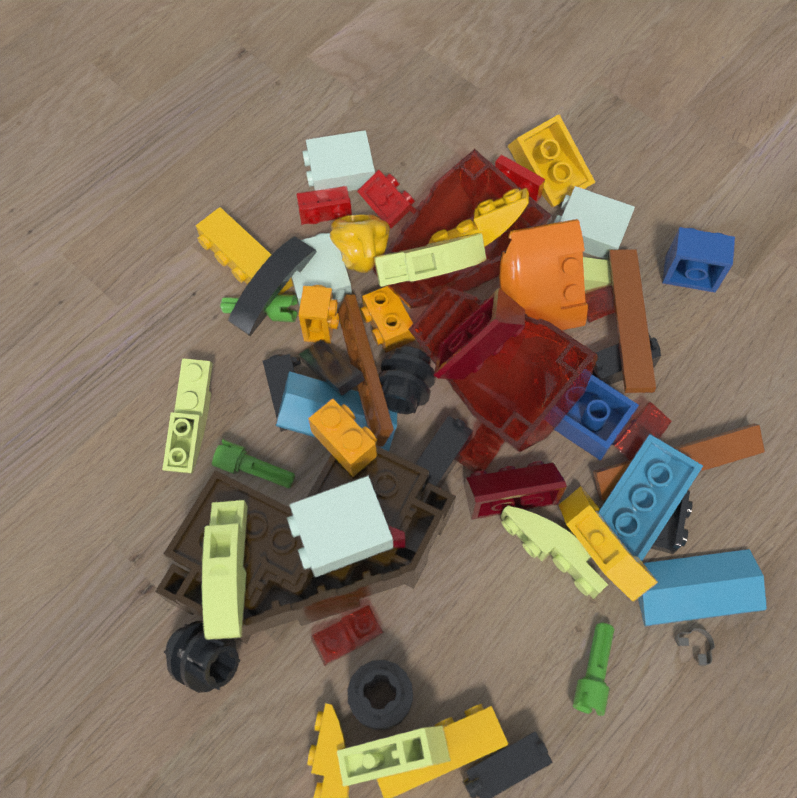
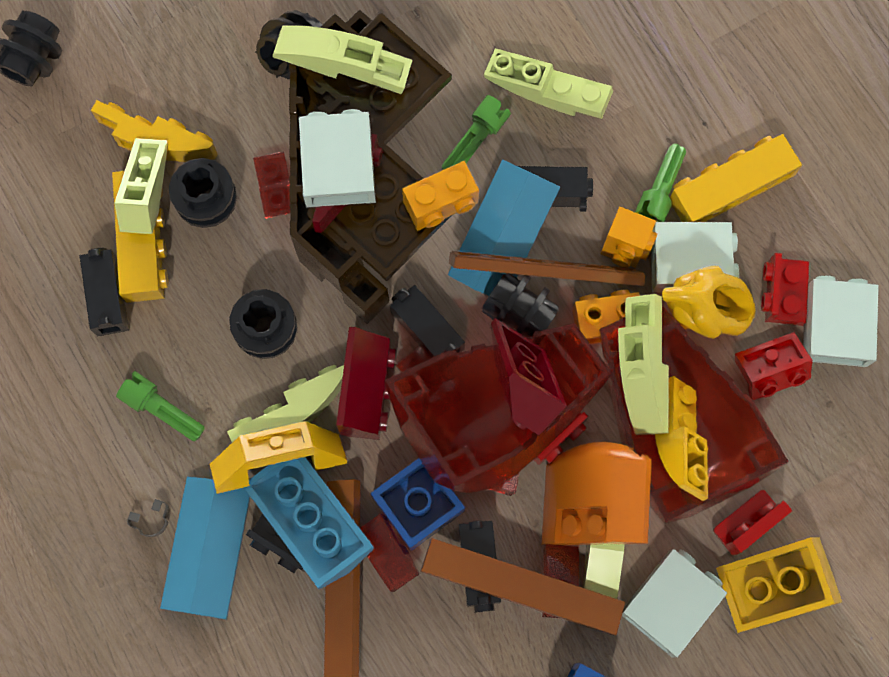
camera: 105 degrees right, 10 degrees up
(268, 282) = (684, 197): black slope -> none
(331, 367) = (559, 236): black tile -> none
(492, 573) = (245, 318): none -> black piece

